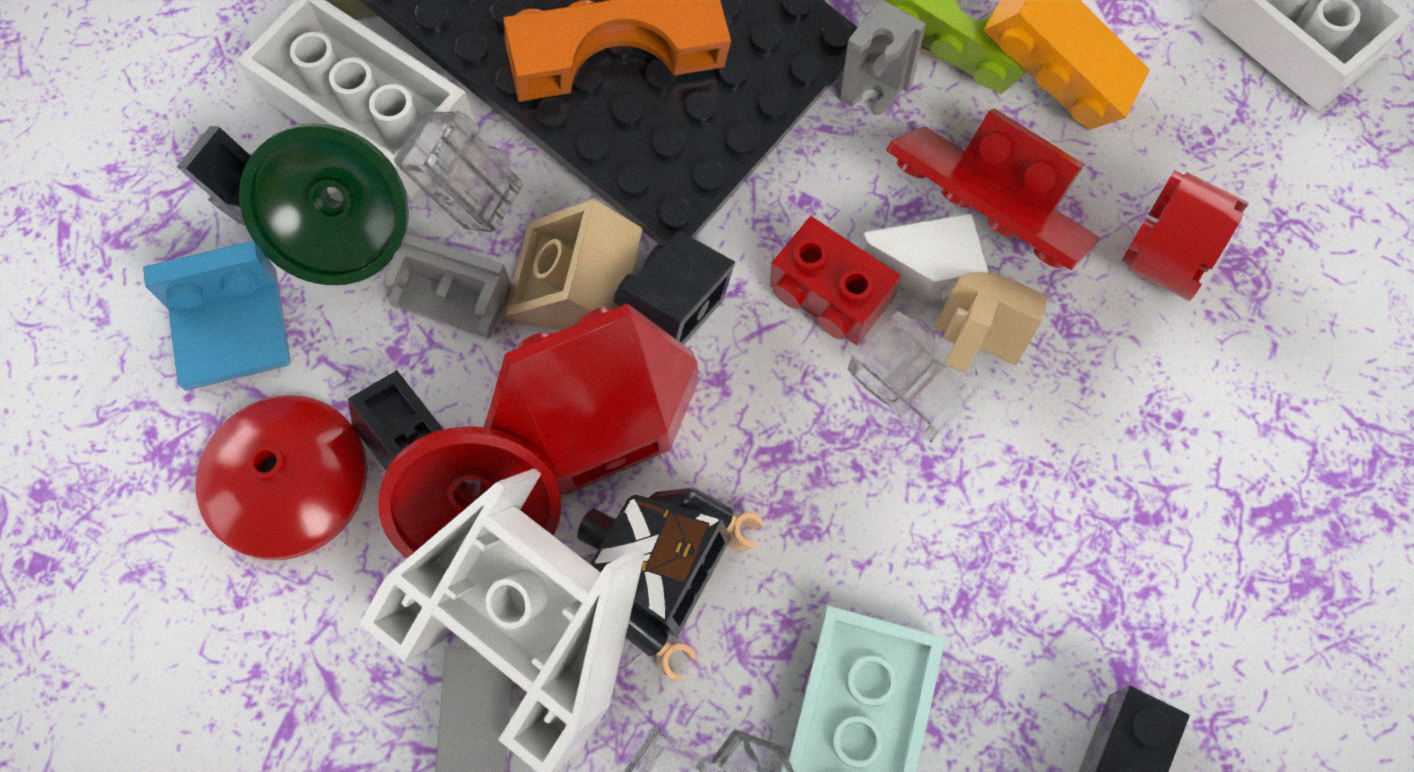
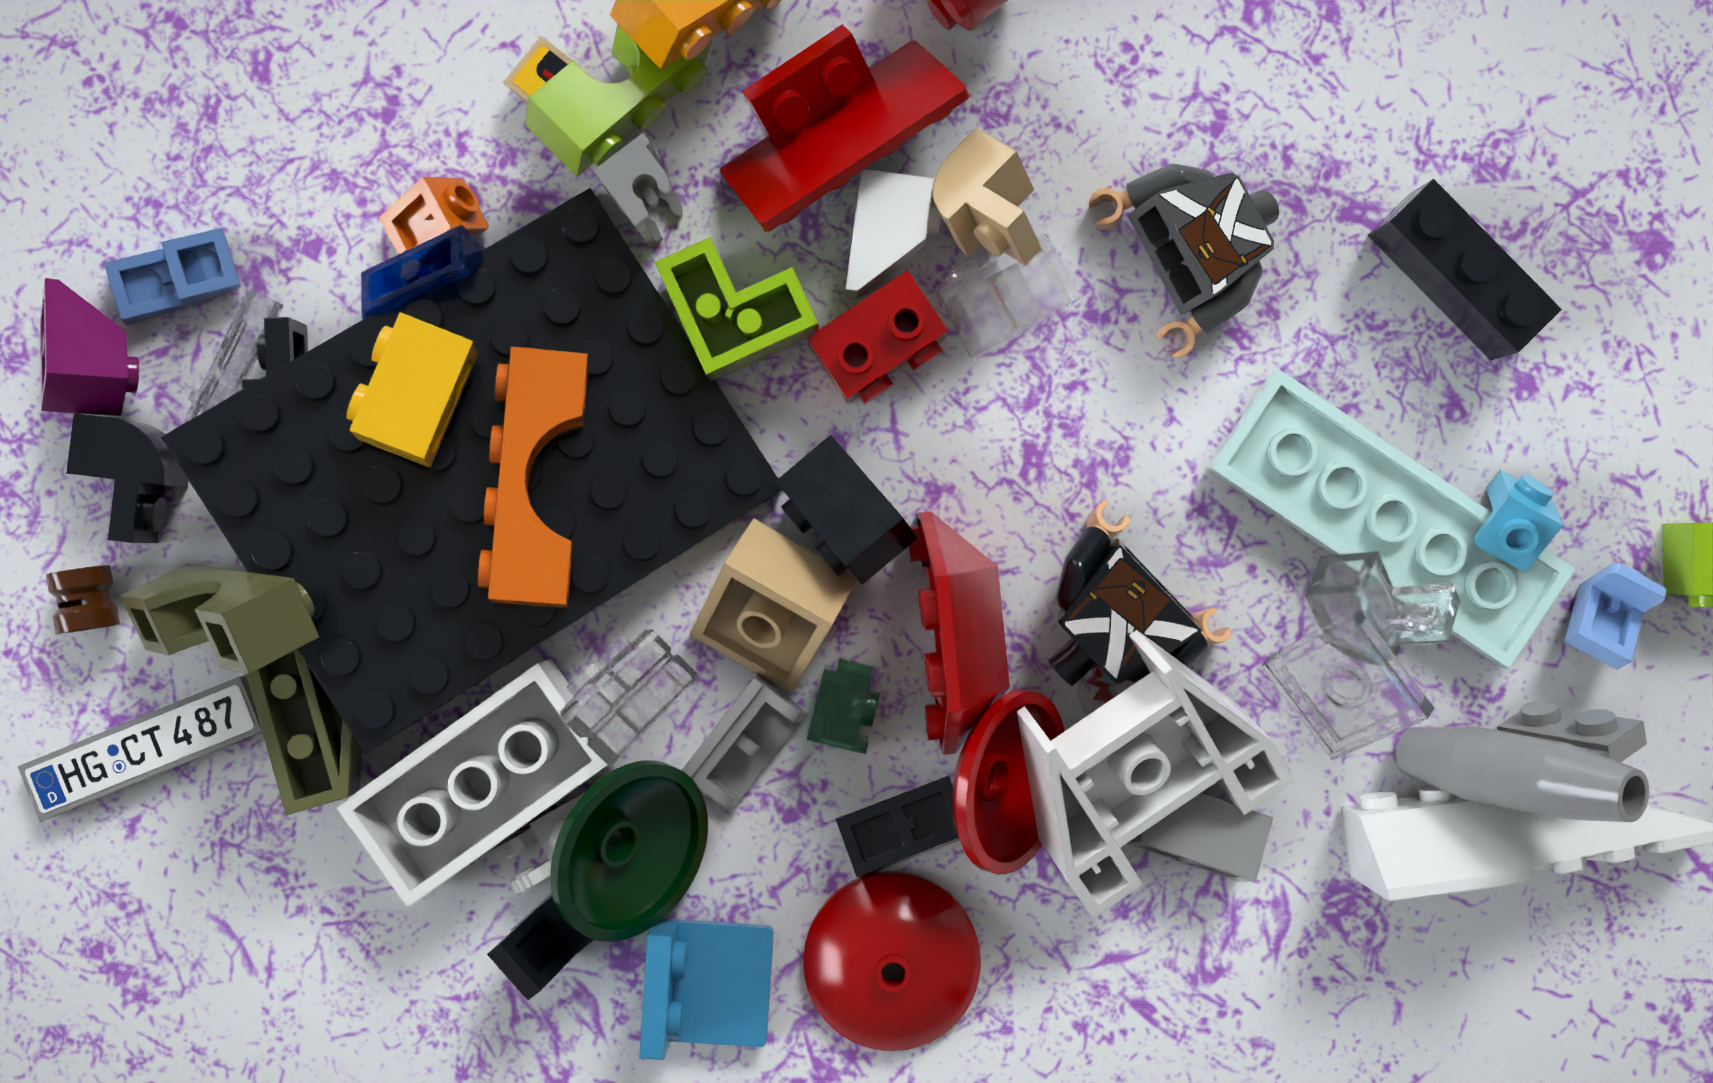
camera: 70 degrees left, 20 degrees up
(485, 347) = (844, 705): none -> clear green brick
(803, 153) = (728, 326): none -> lime brick
(1033, 523) = (1200, 238): none -> dark grey torso

